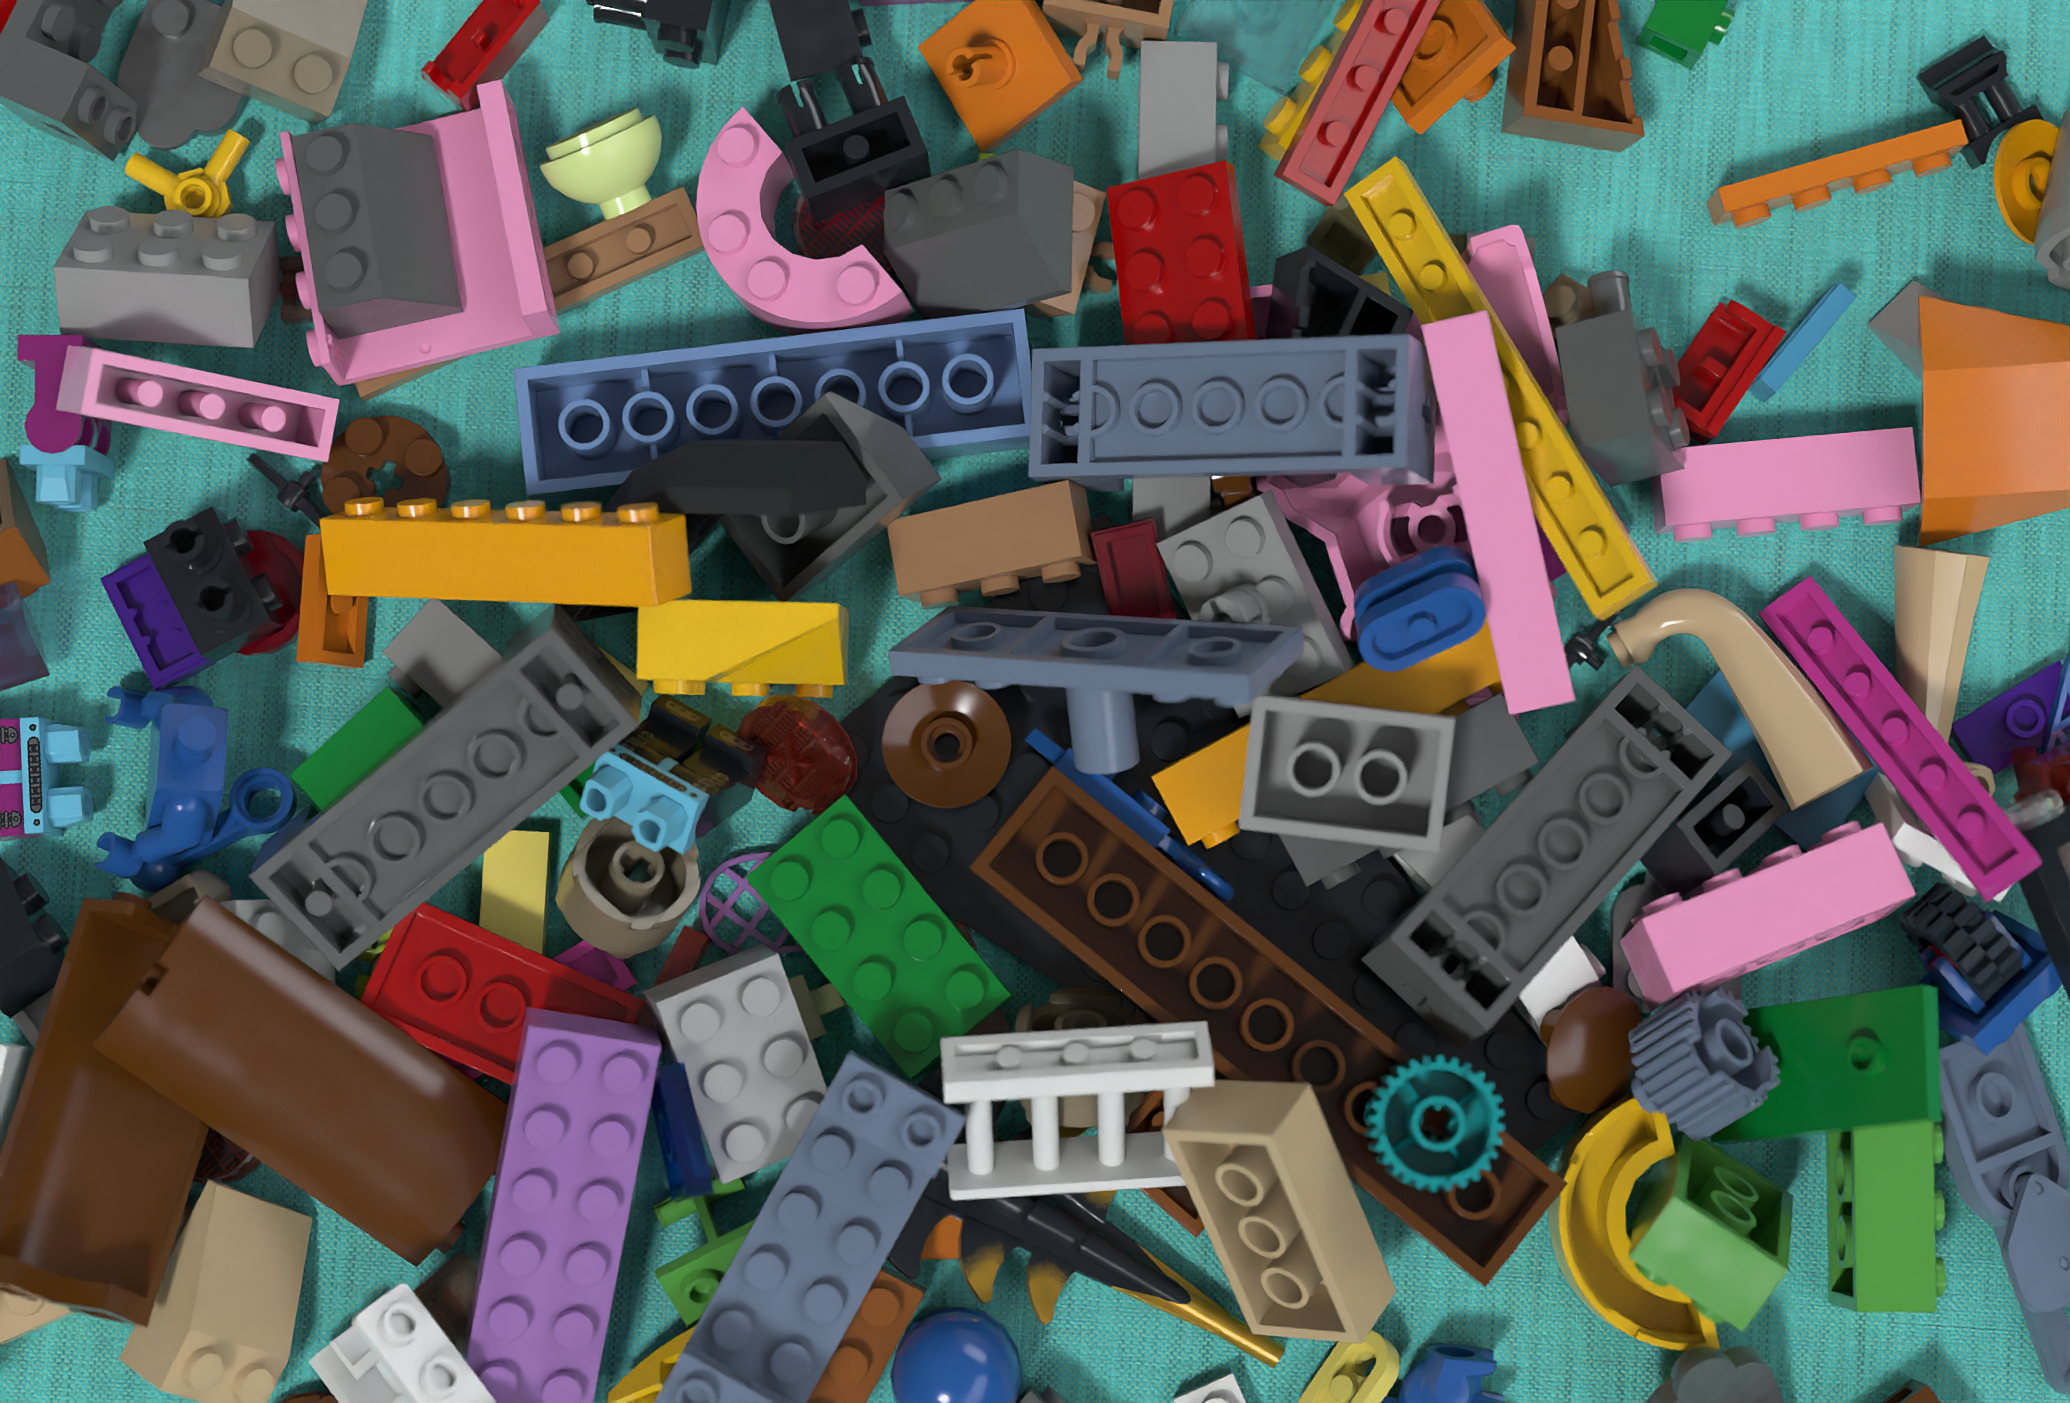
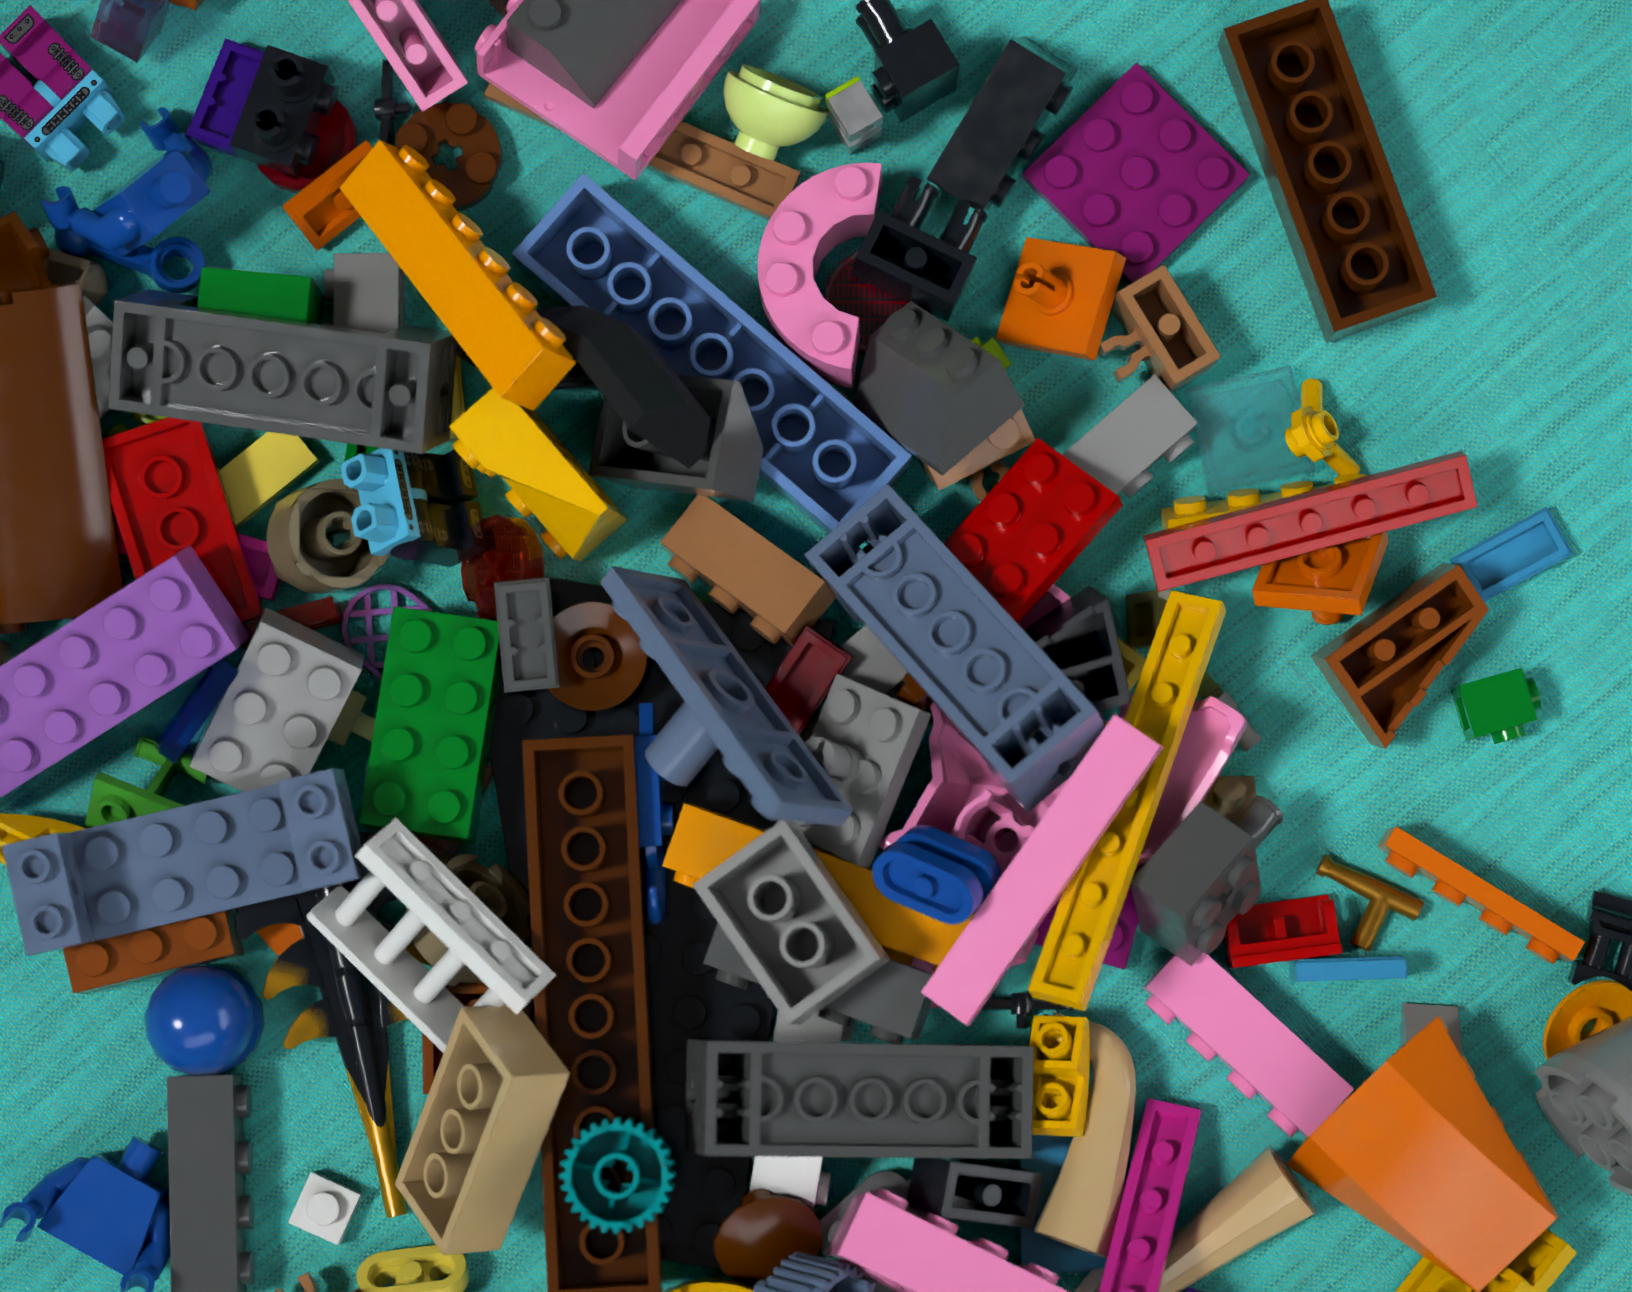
camera: 50 degrees right, 0 degrees up
(677, 94) = (853, 115): none -> flat silver piece
(877, 781) = (526, 634): none -> dark grey plate
(1677, 664) = (1060, 1075): none -> yellow slope
(1762, 260) = (1381, 900): none -> pearl gold piece

